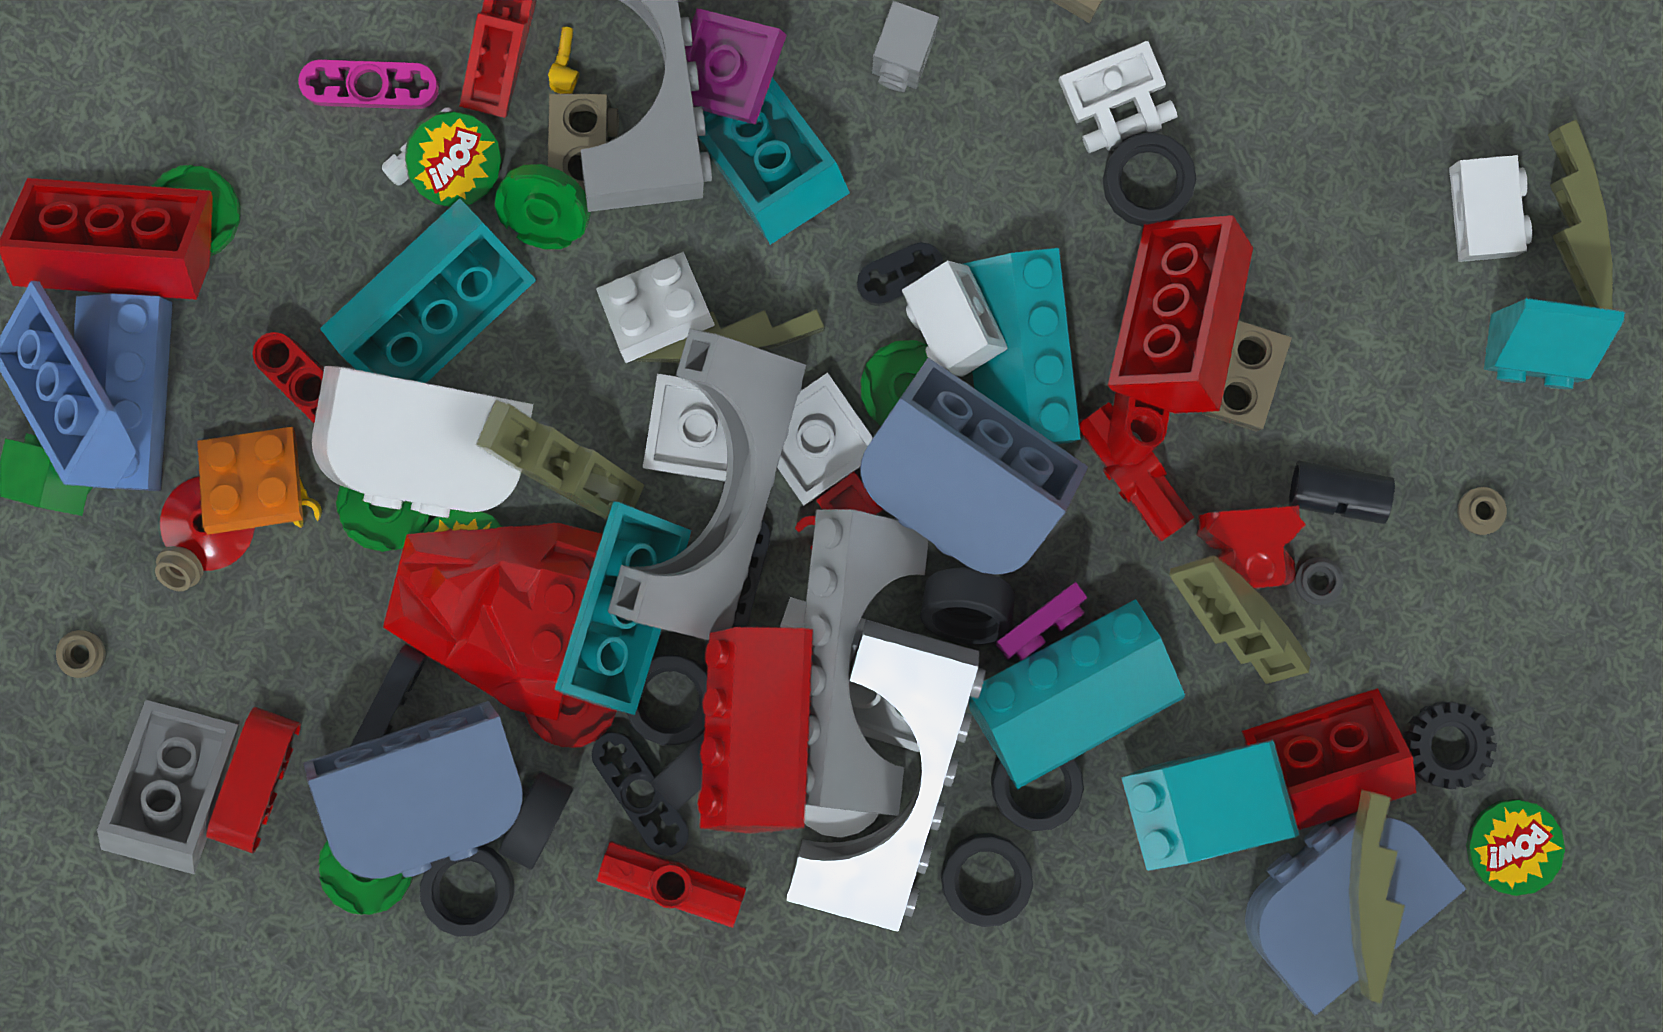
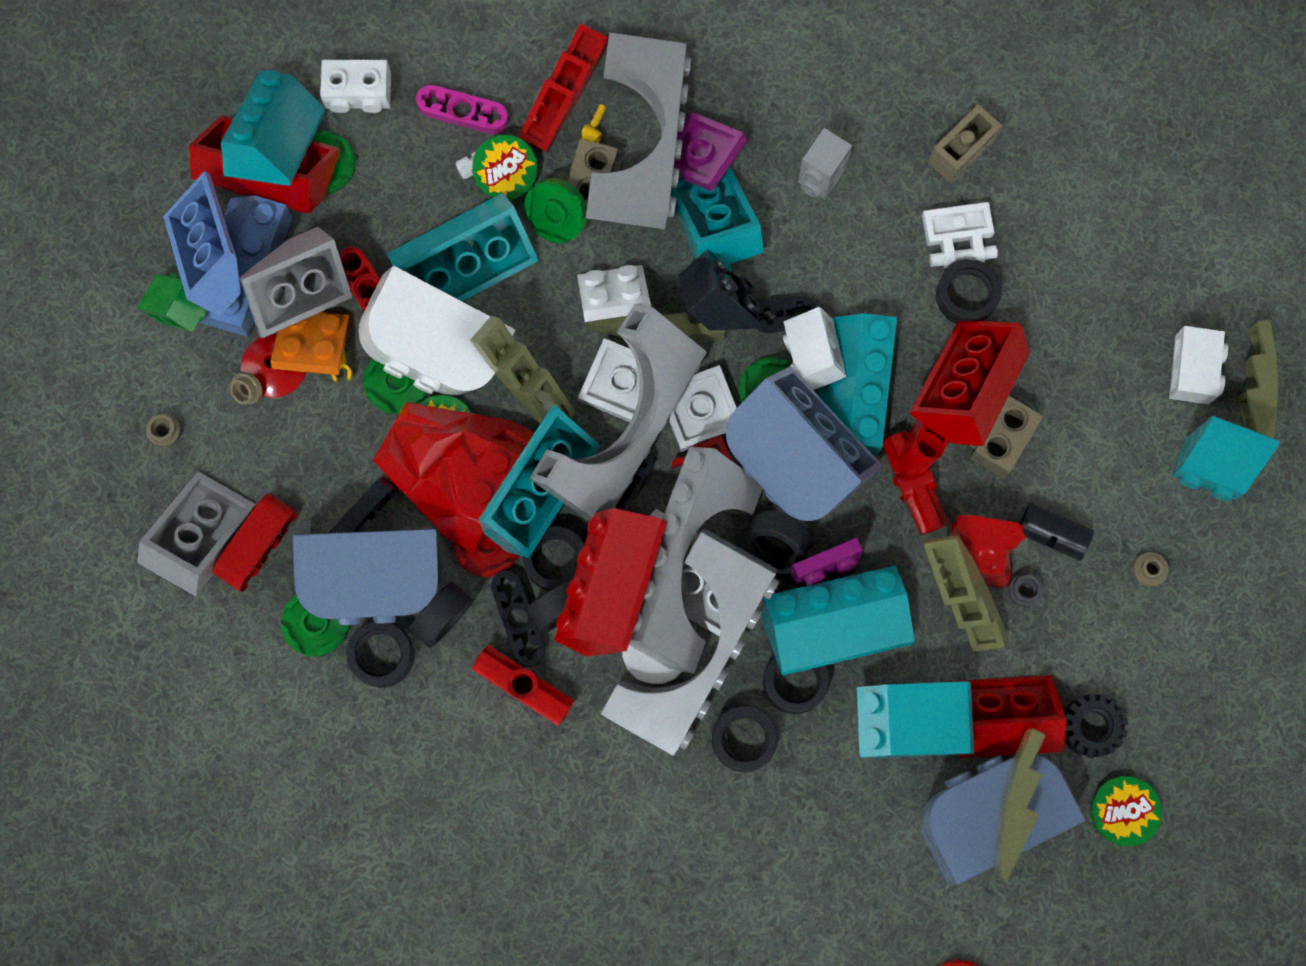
camera: 15 degrees right, 10 degrees down
(109, 194) = (271, 130): none -> teal slope
(206, 408) = (295, 282): none -> light grey slope
(207, 88) = (355, 85): none -> white brick
(803, 277) = (718, 295): none -> black slope

